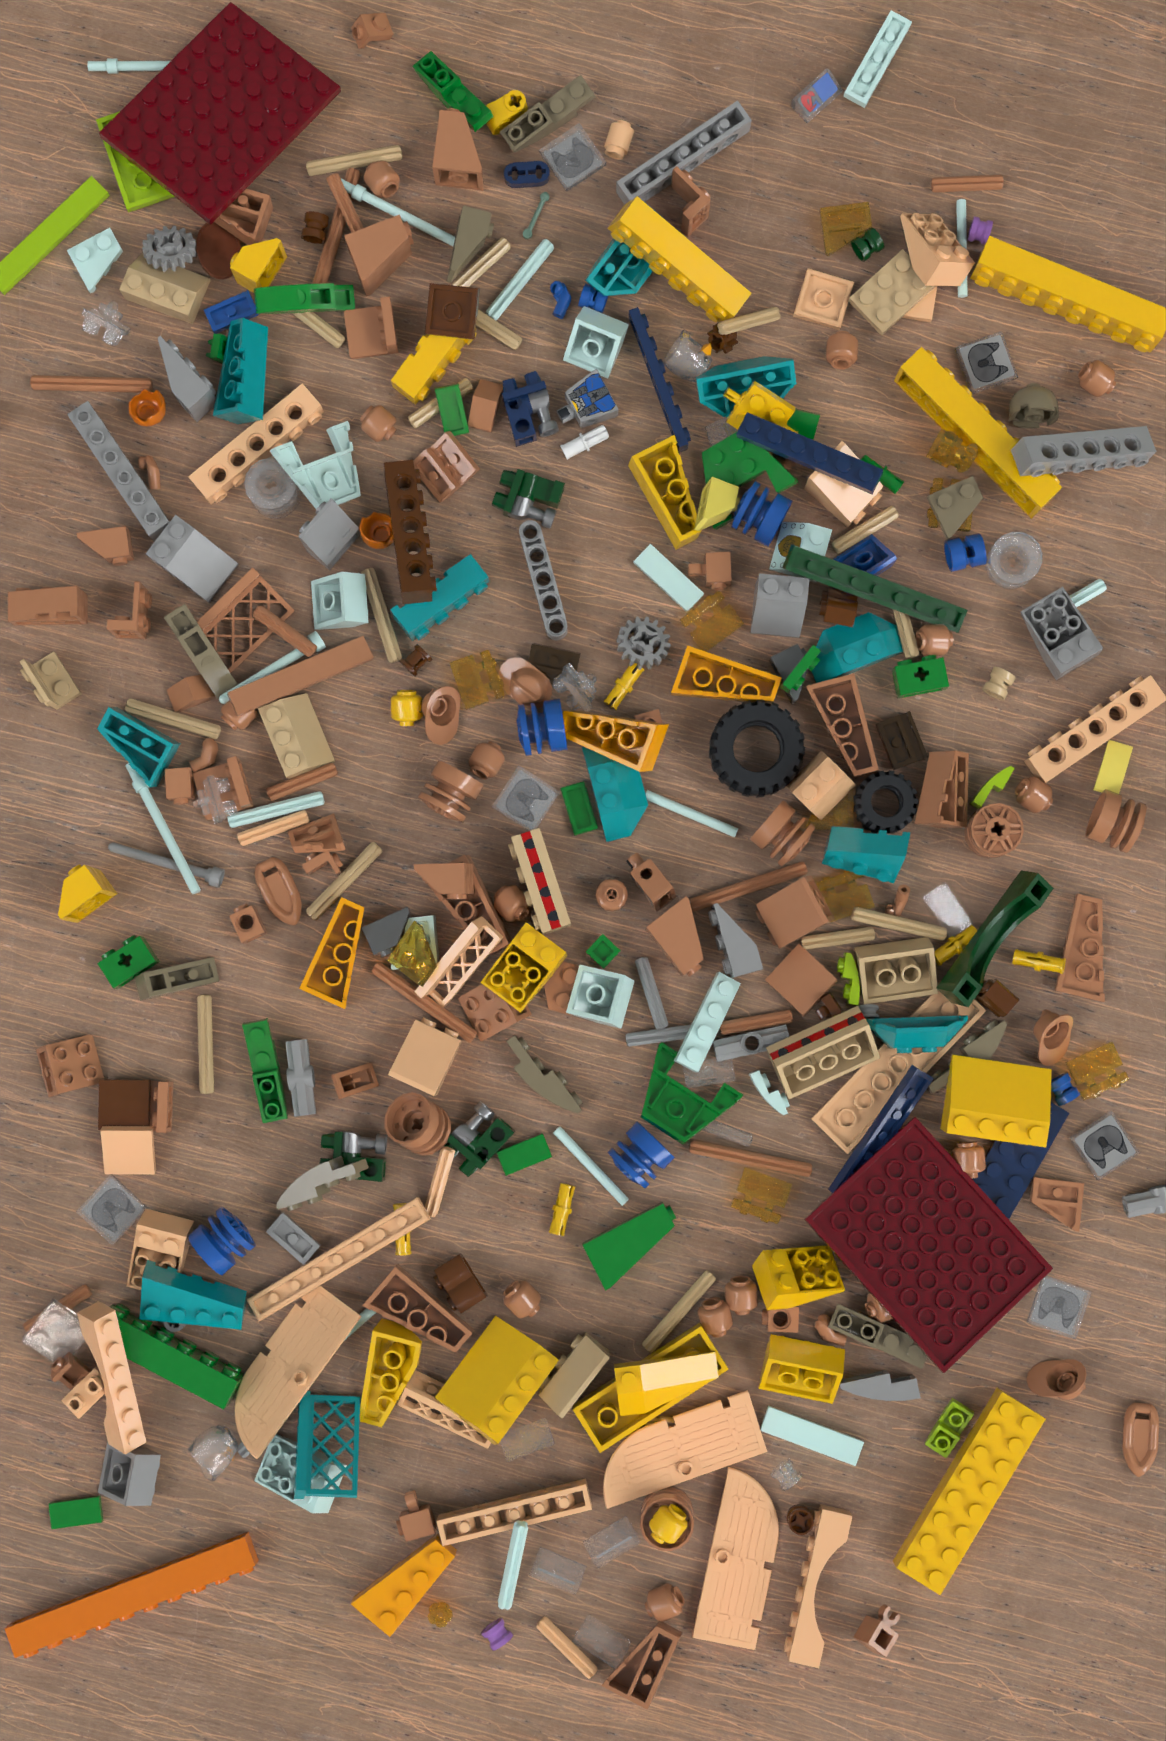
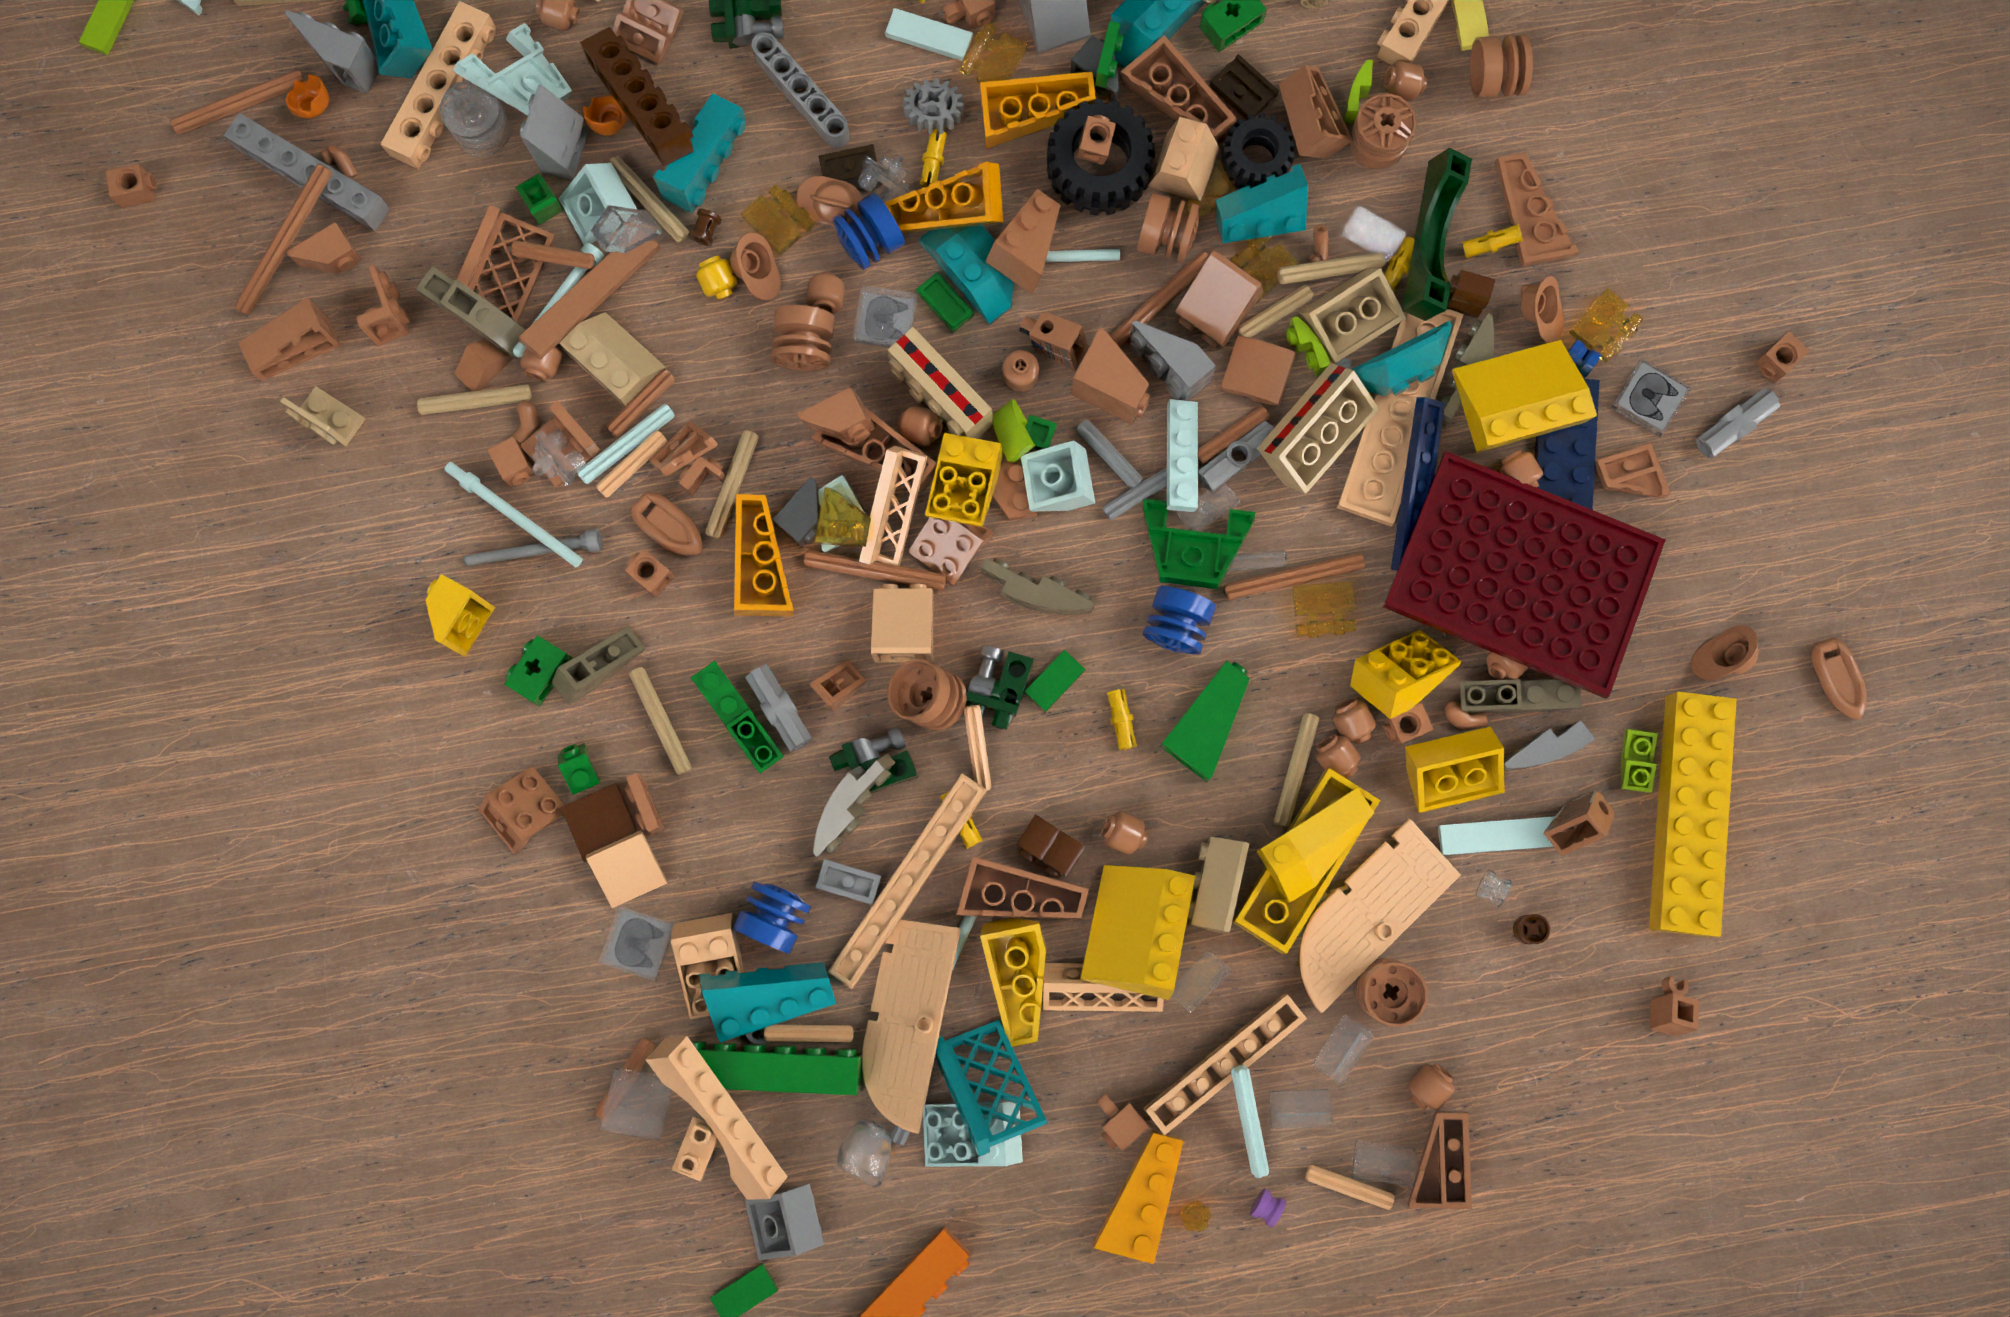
camera: 25 degrees left, 5 degrees down
(69, 1370) = (665, 1137): nougat bracket -> none
(78, 522) = (283, 239): none -> nougat axle
(95, 319) = (213, 35): clear hips -> none
(125, 1052) = (577, 768): none -> green bracket
(140, 744) = (449, 436): teal wedge -> none
(192, 558) = (420, 228): light grey slope -> none
(211, 1341) = (808, 1033): none -> light nougat axle
(294, 575) = (539, 198): none -> green slope
(351, 637) = (624, 229): none -> clear slope
(580, 941) = (1010, 431): none -> lime slope
(590, 1165) = (1130, 661): light aqua bar -> none
(664, 794) = (1025, 242): none -> nougat wedge
(668, 1524) = (1397, 993): yellow head -> none
(735, 1571) = (1490, 1021): light nougat door -> none
(745, 746) = (1092, 150): none -> nougat brick
(774, 1098) = (1291, 503): light aqua slope -> none
(830, 1533) = (1601, 1056): light nougat arch -> none
(831, 1007) = (1301, 381): reddish brown tile -> none
(877, 1457) = (1590, 820): none -> nougat torso
(1059, 1307) = (1688, 582): clear tile -> none

